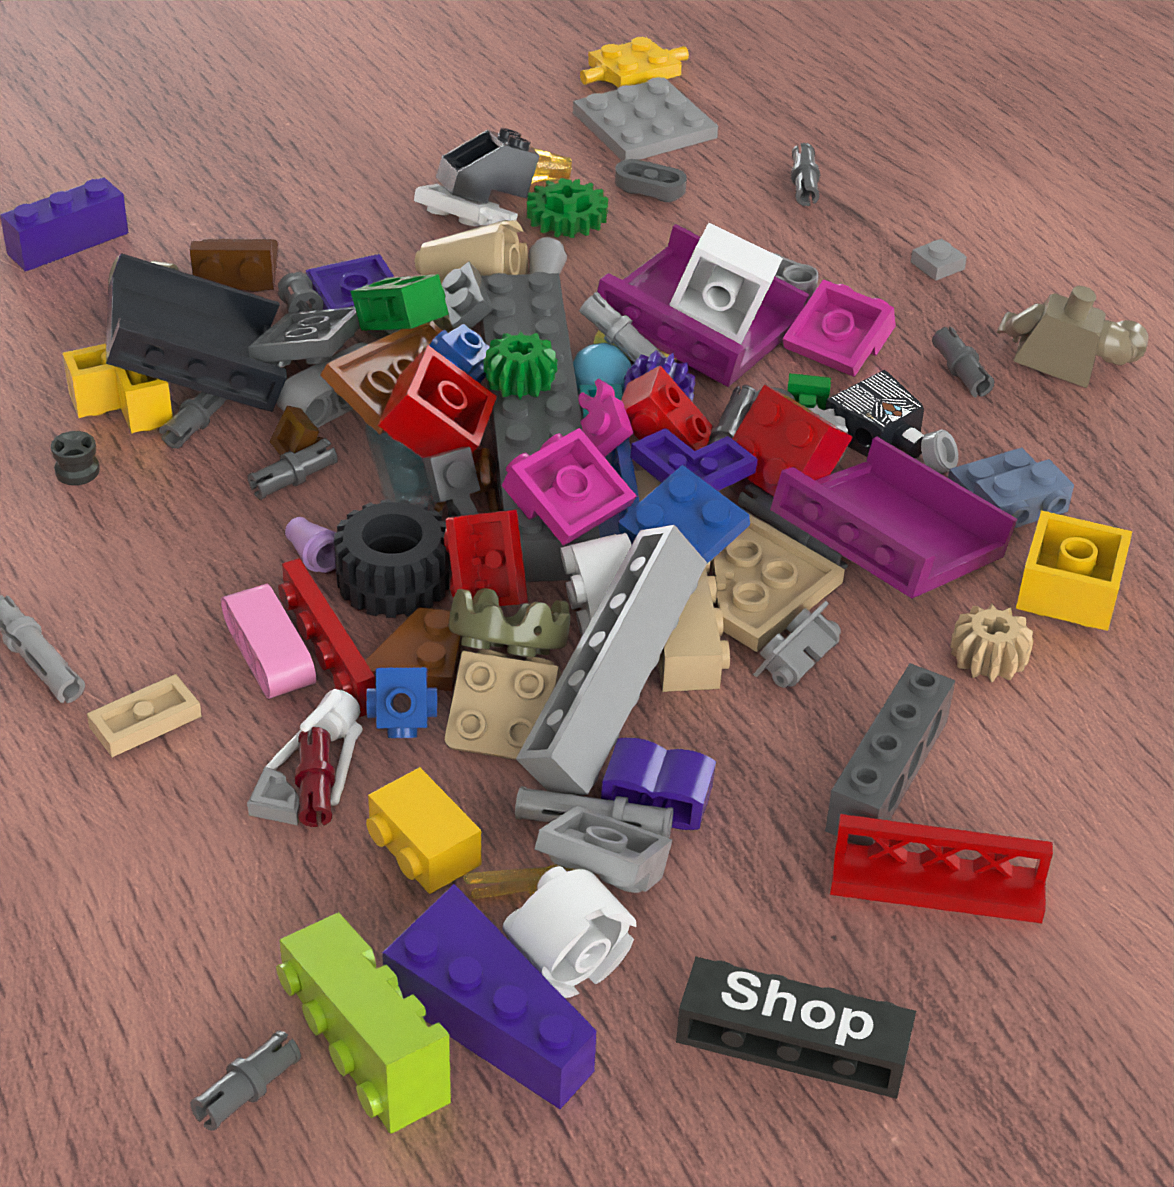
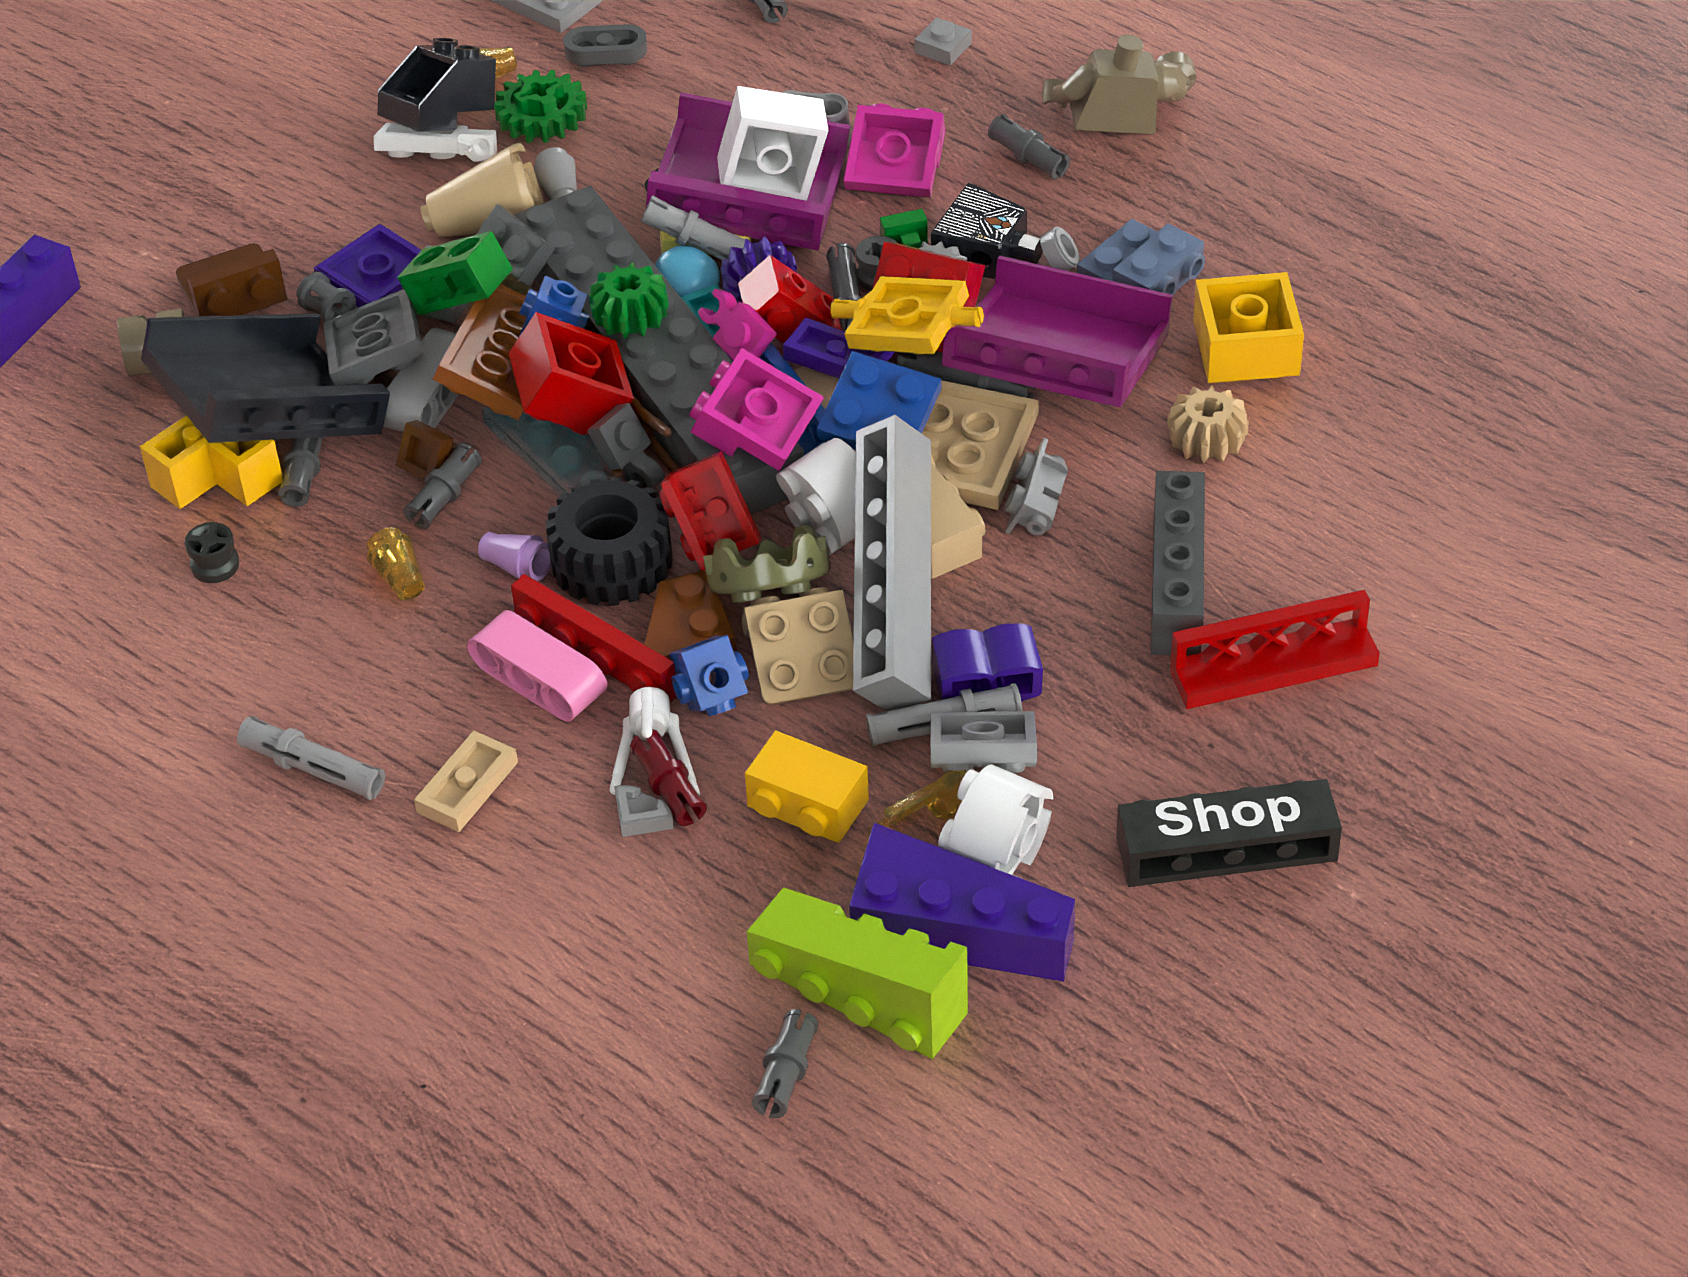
camera: 20 degrees left, 5 degrees up
(212, 515) = (395, 561): none -> clear yellow cone
(748, 450) = (906, 314): none -> yellow plate

